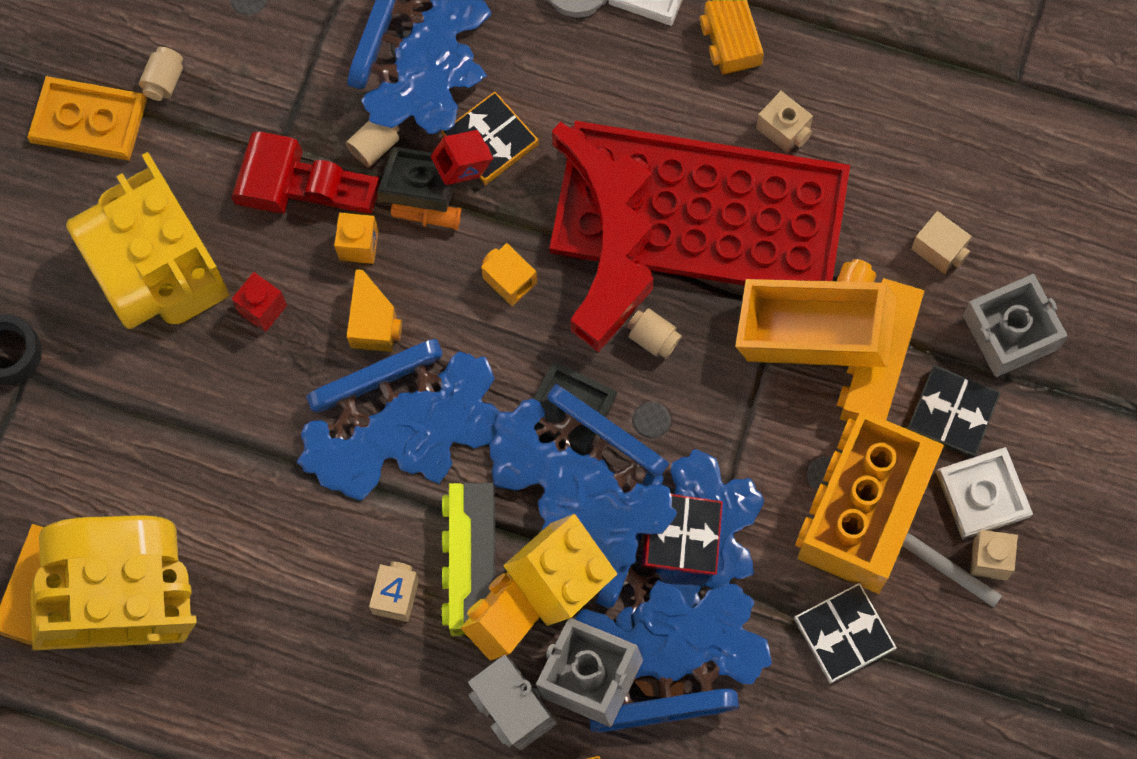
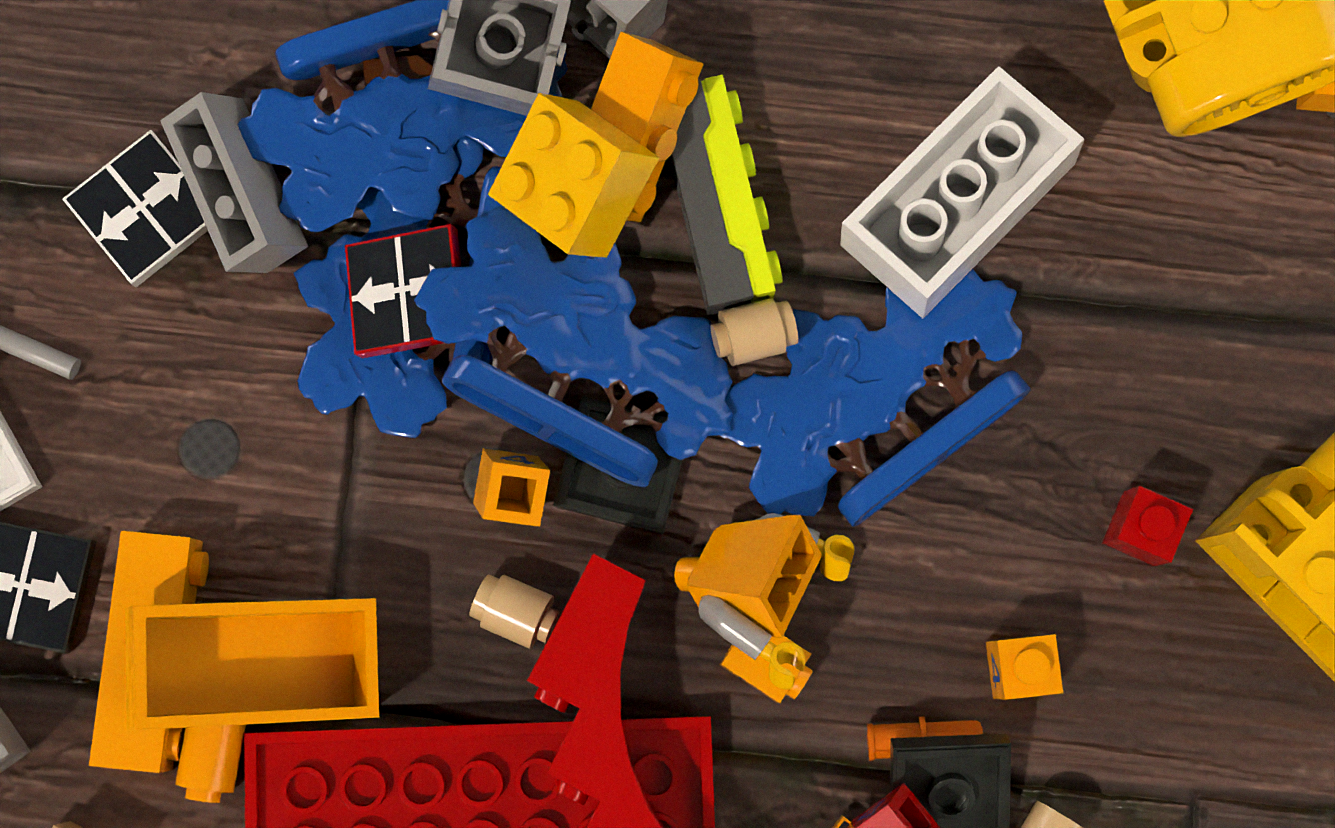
camera: 160 degrees right, 10 degrees up
(274, 174) = (1188, 752): red plate -> none
(315, 521) = (960, 191): none -> white brick
(372, 317) = (964, 543): light orange slope -> none
(394, 591) = (817, 123): tan brick -> none
(468, 466) = (754, 331): none -> tan brick
(504, 314) = (755, 579): none -> light orange torso
(640, 401) = (511, 487): none -> light orange brick
(783, 622) = (232, 190): none -> light grey brick
(888, 471) = (110, 344): light orange brick -> none

